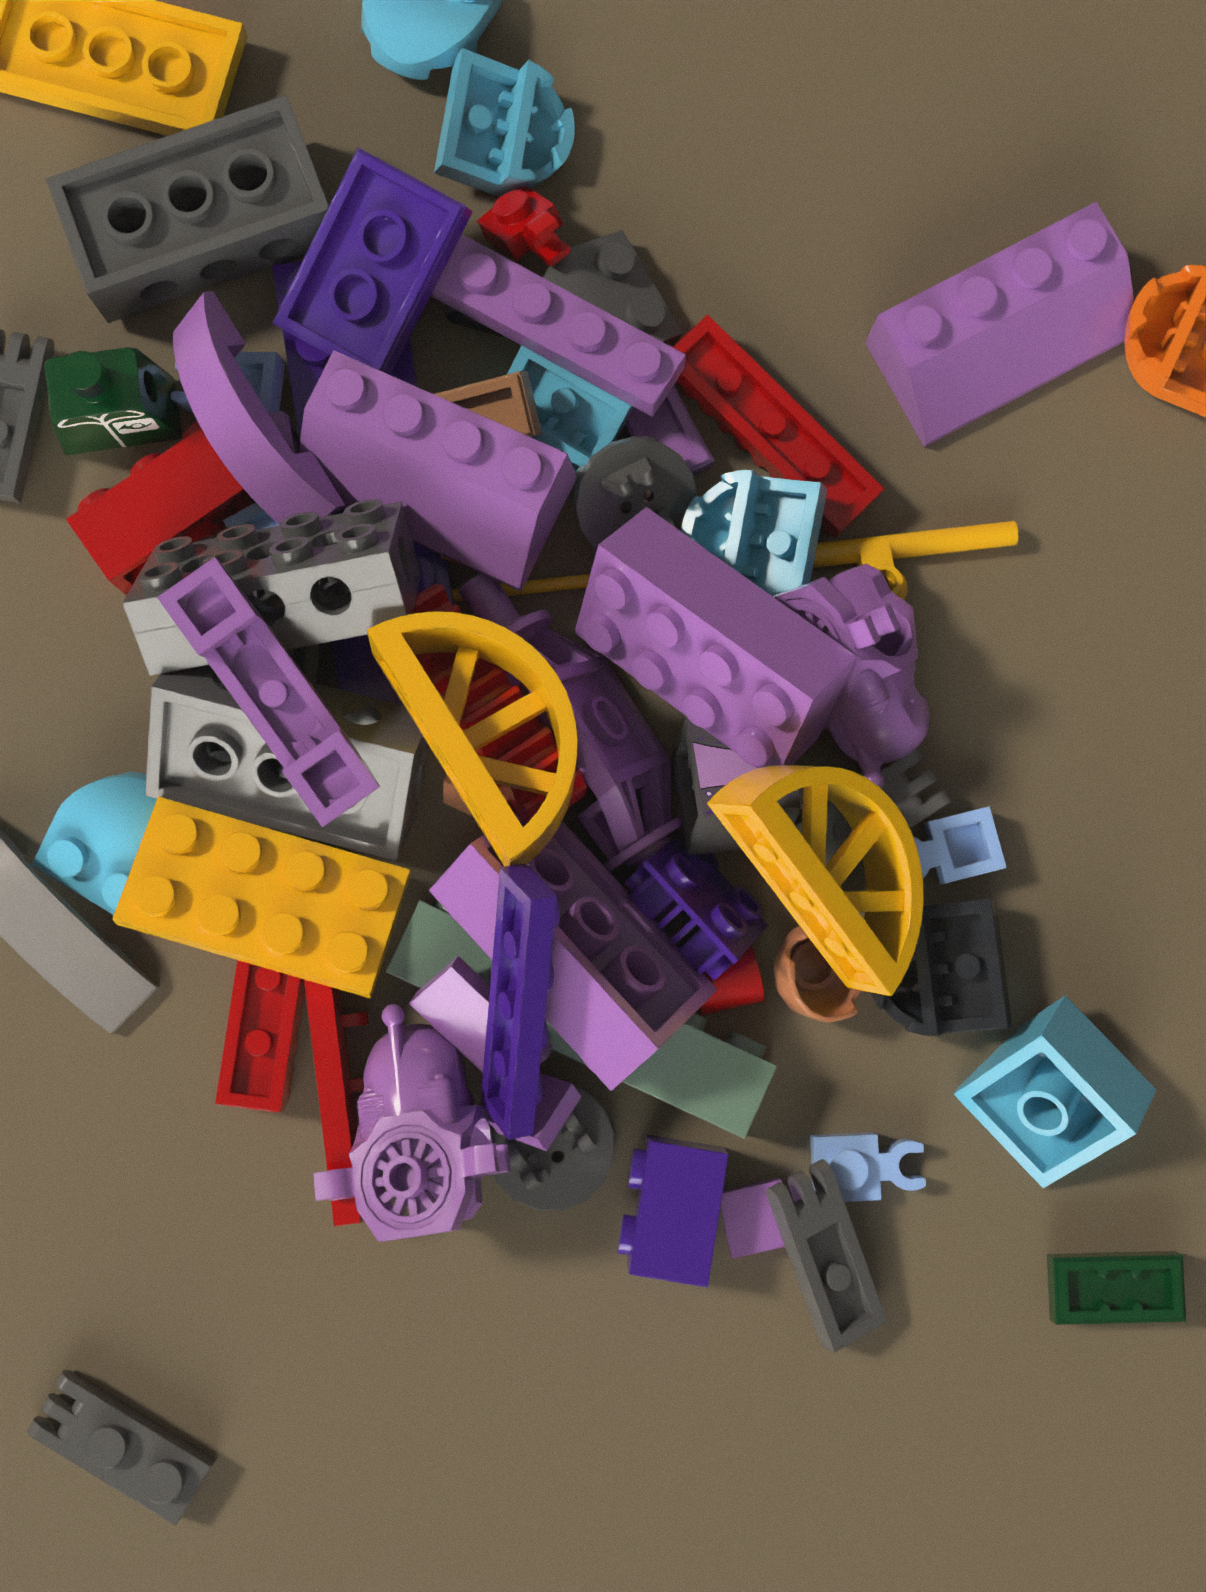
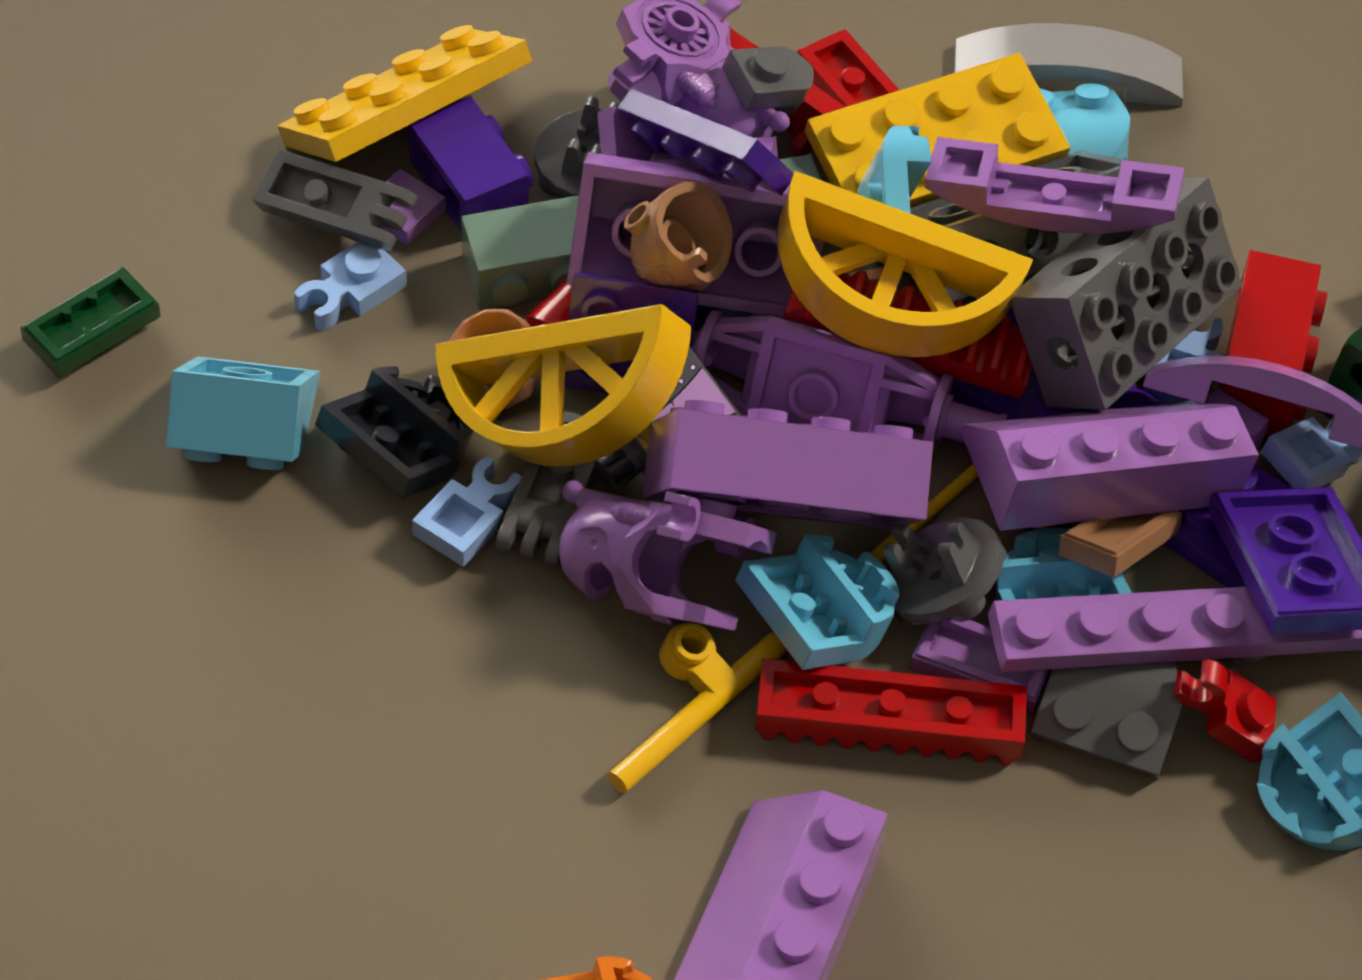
camera: 145 degrees right, 30 degrees down
(367, 1060) = (769, 77): none -> dark grey plate
(395, 838) = (896, 170): none -> medium azure slope
(638, 918) = (681, 237): none -> medium nougat helmet
(675, 1333) = (403, 94): none -> yellow plate

